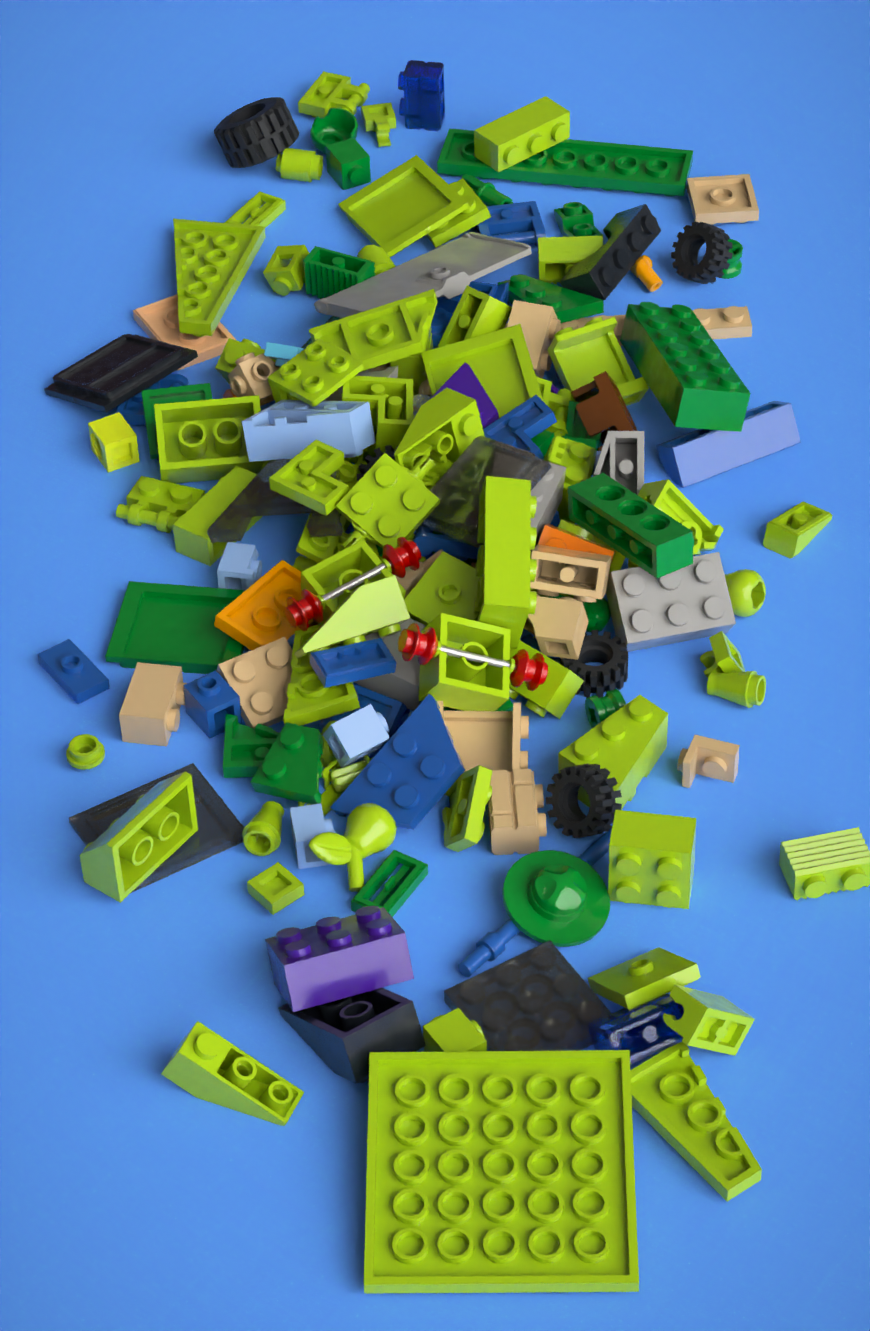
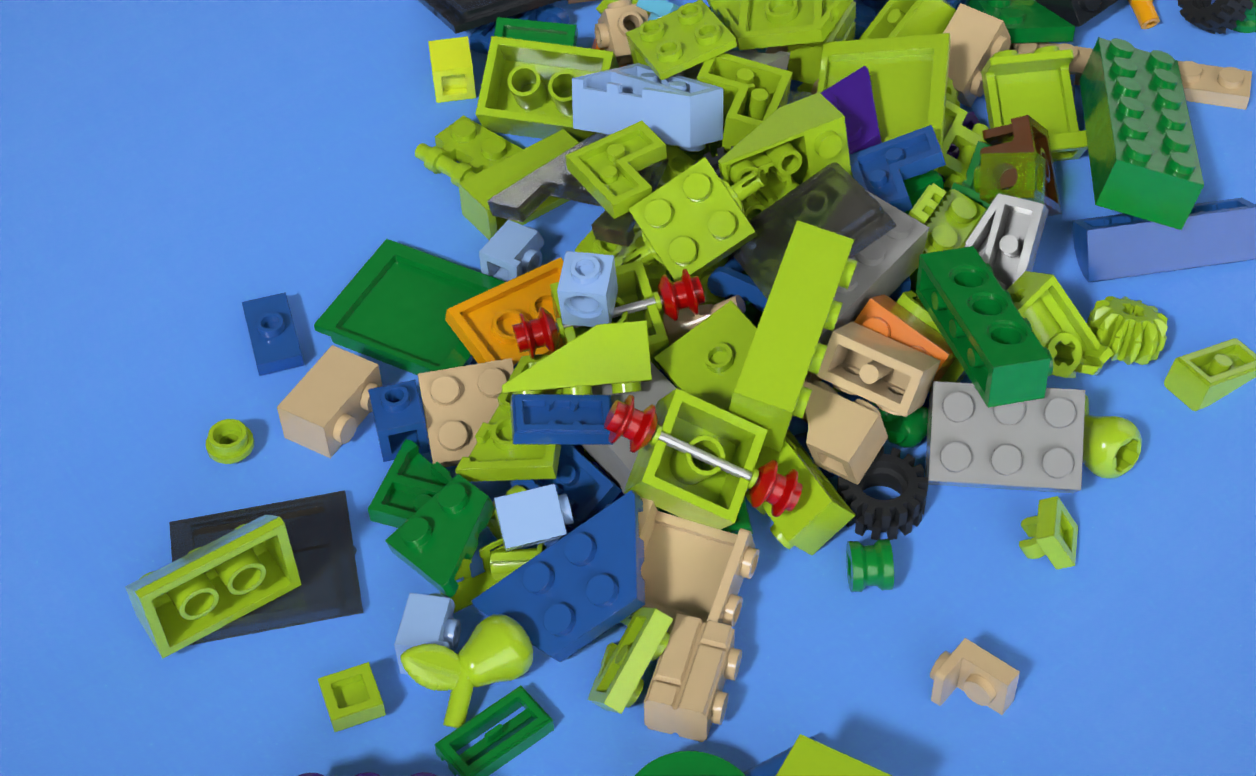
camera: 20 degrees right, 5 degrees up
(264, 830) = (376, 610): lime cone -> none
(338, 565) = (587, 289): none -> light blue brick
(565, 800) = (763, 675): black tyre -> none
(618, 407) = (1030, 180): none -> clear neon green brick
(624, 744) = (853, 636): lime wedge -> none
(730, 509) = (1129, 329): none -> lime gear
(742, 687) = (1058, 580): lime cone -> none

